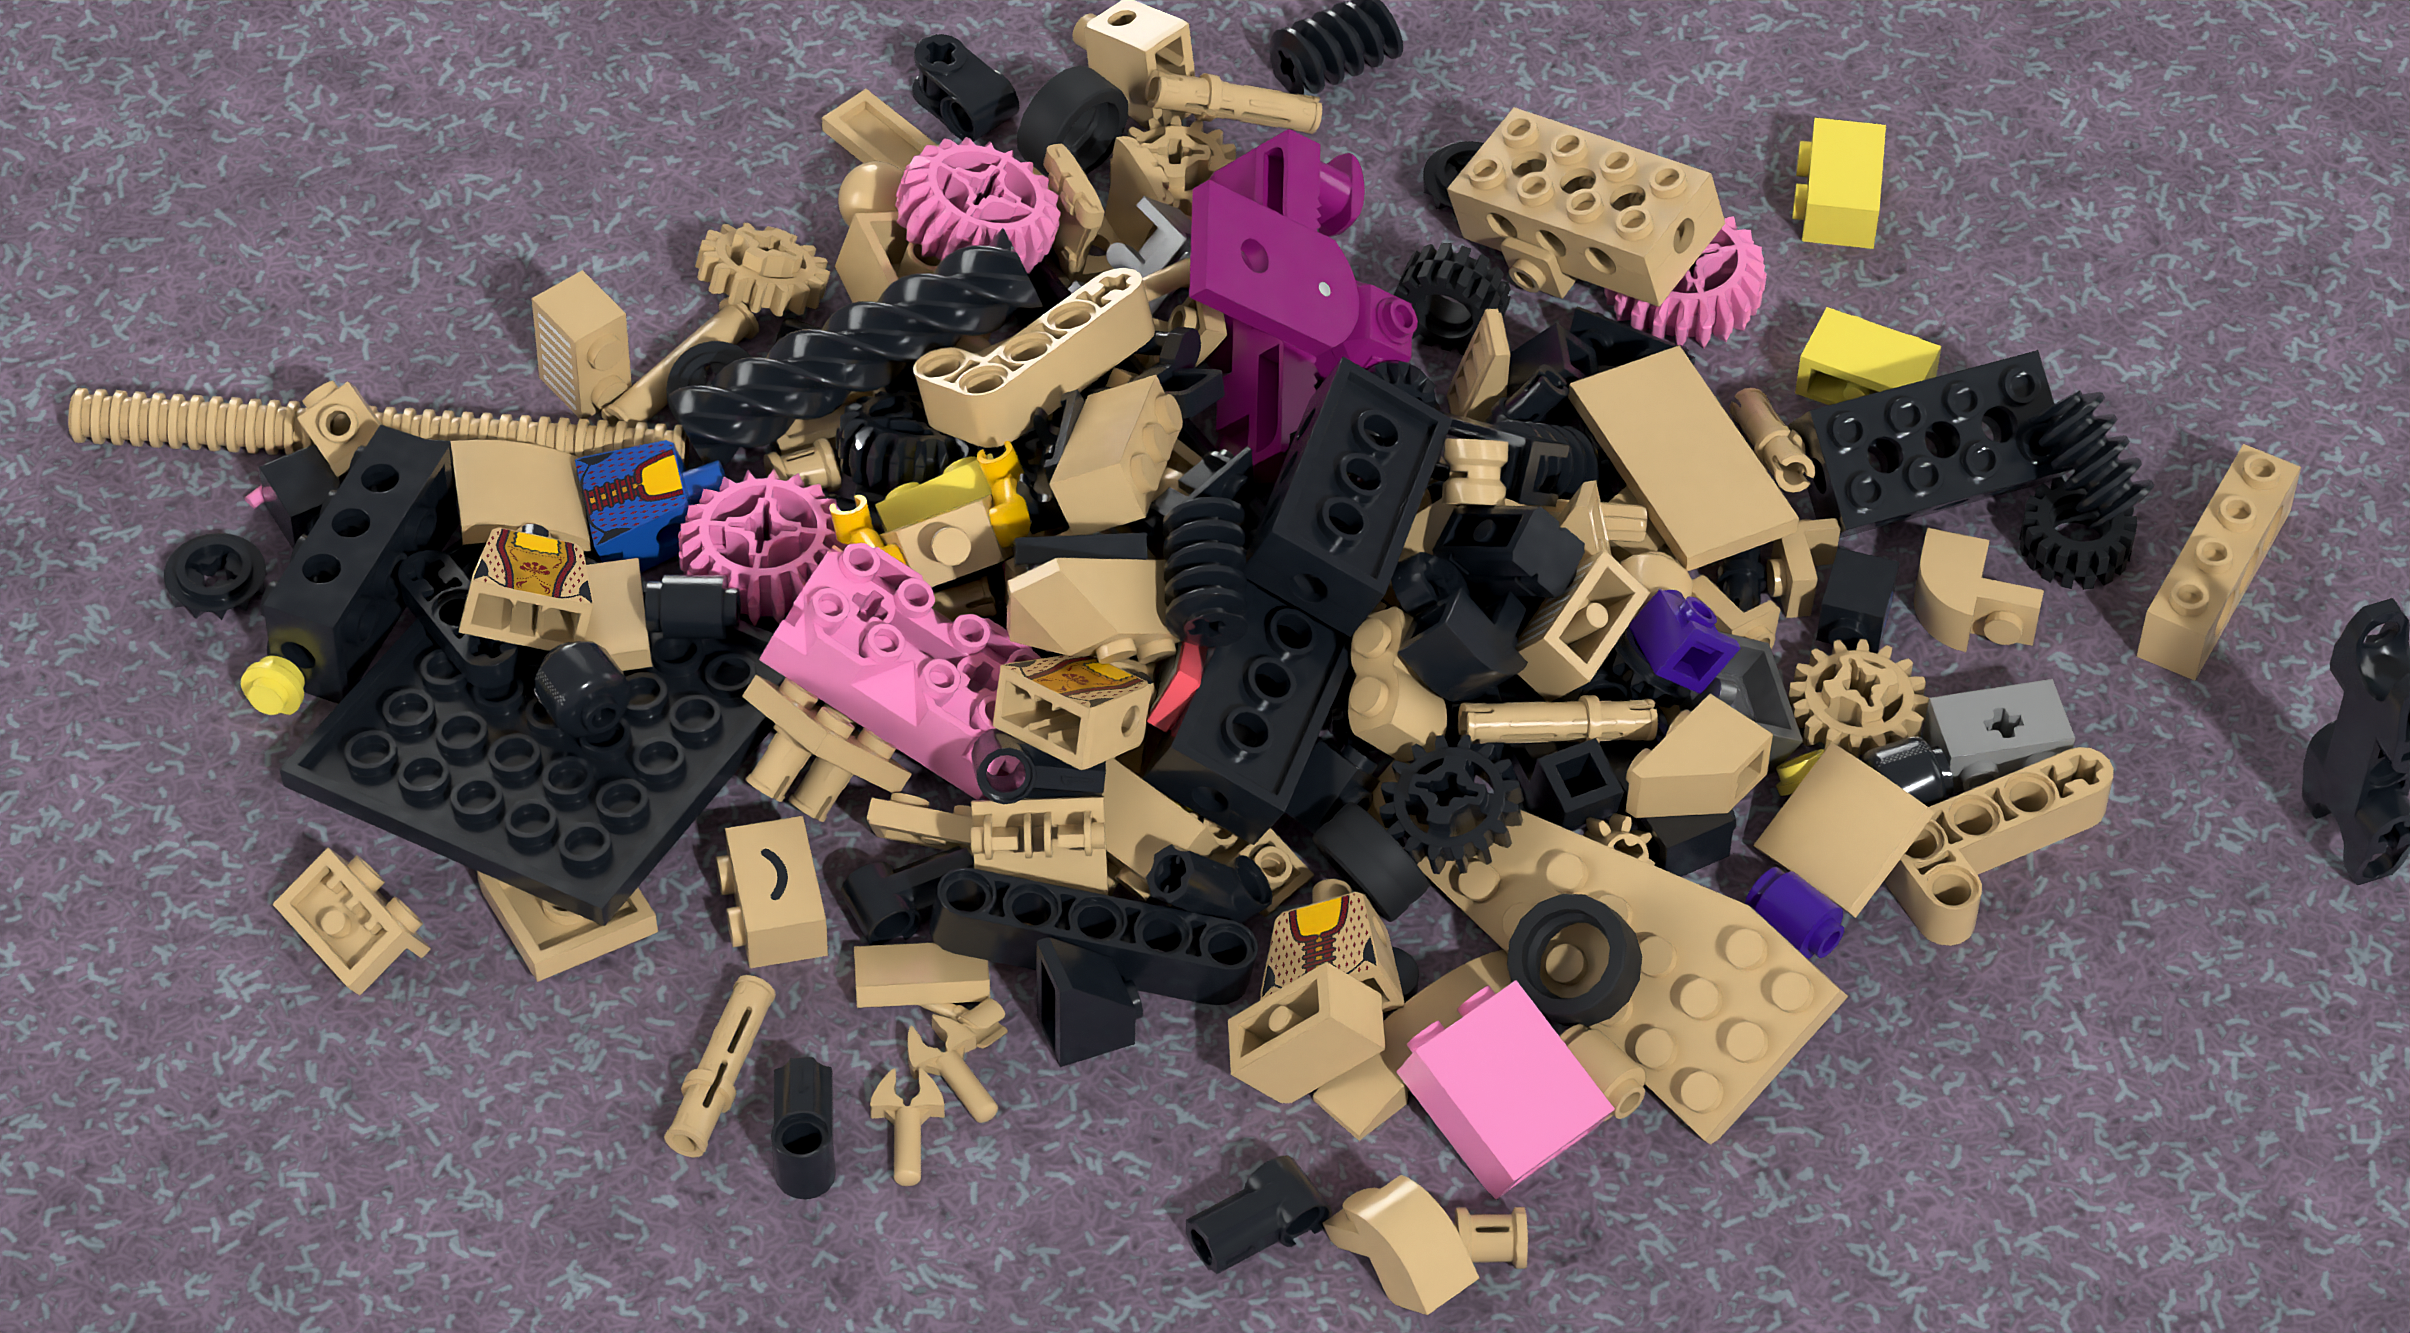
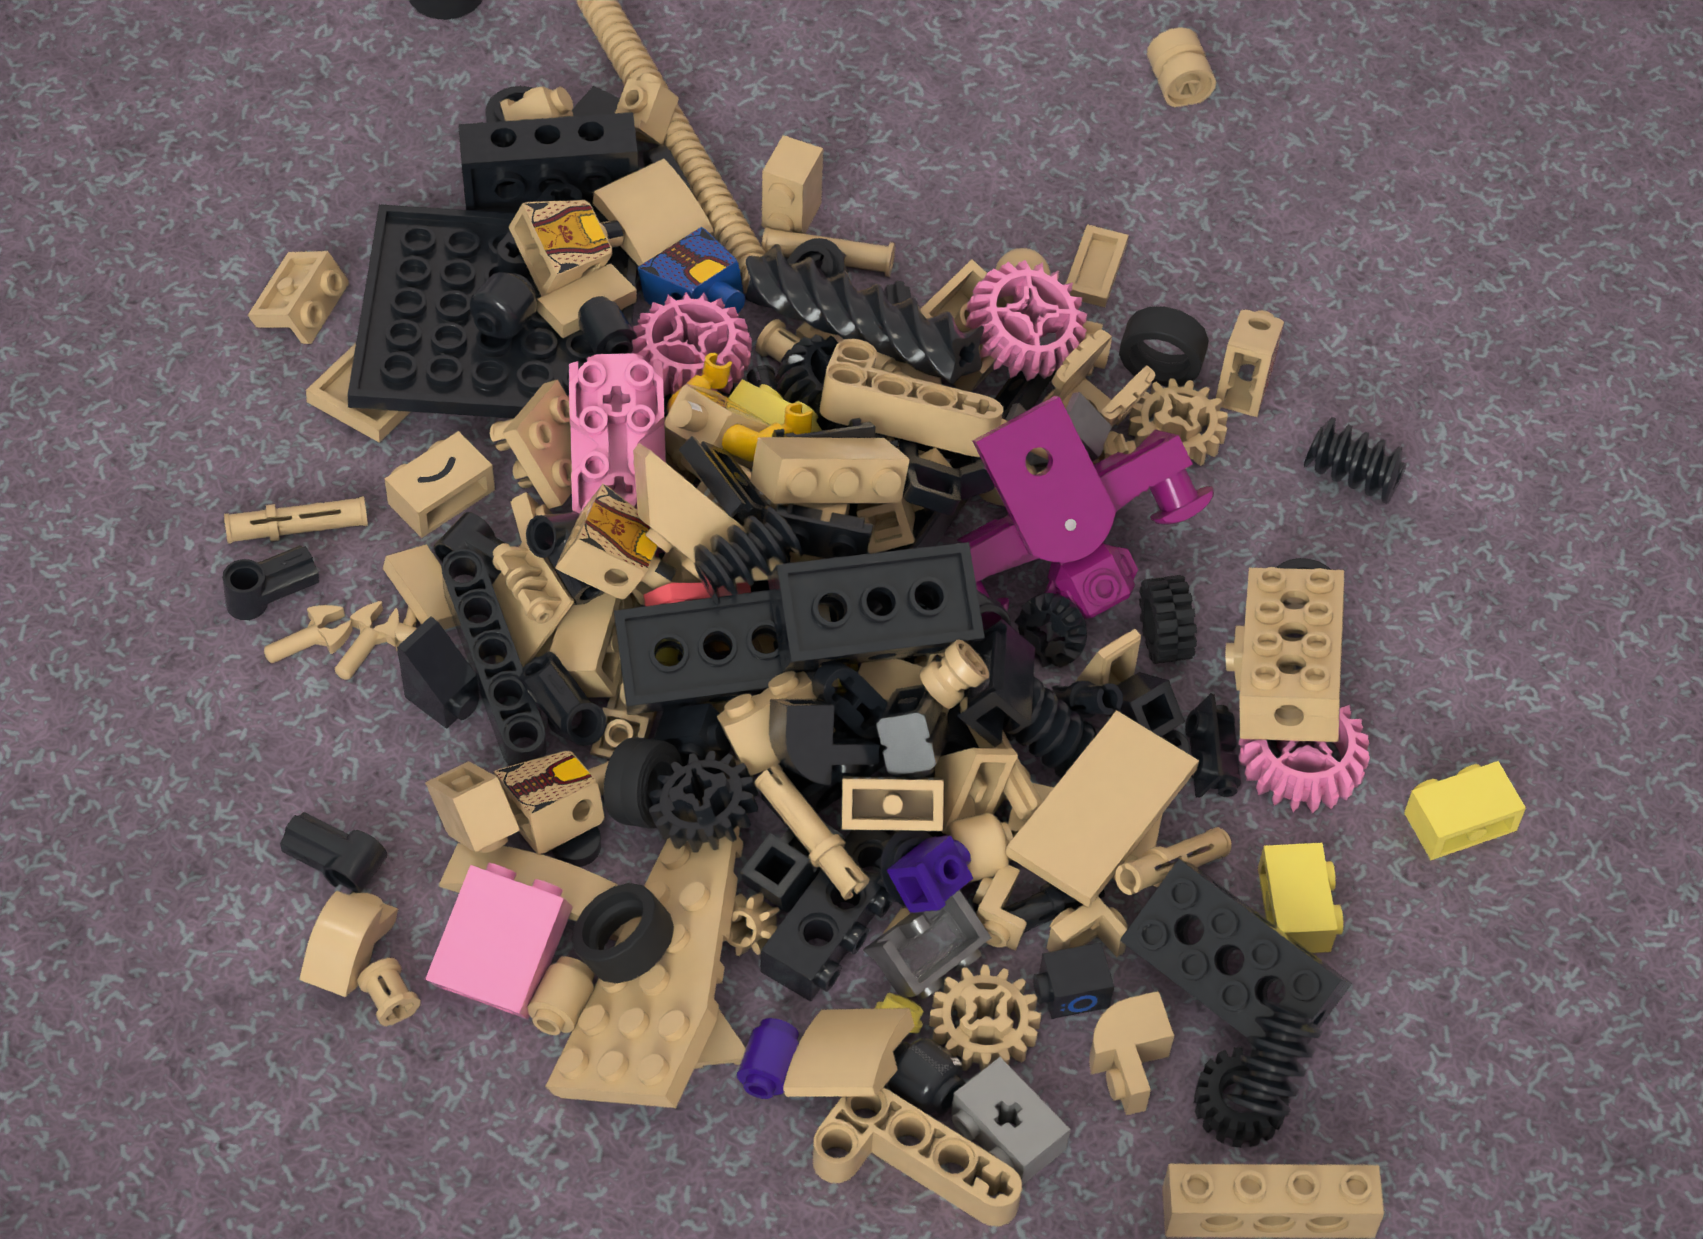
camera: 60 degrees right, 5 degrees up
(273, 530) = (539, 104): none -> tan brick
(274, 685) = (448, 176): light yellow plate -> none
(762, 269) = (927, 248): tan gear -> none
(961, 88) = (1162, 275): black piece -> none
(1212, 98) = (1249, 417): tan pin -> none
(1700, 765) = (828, 931): tan slope -> none

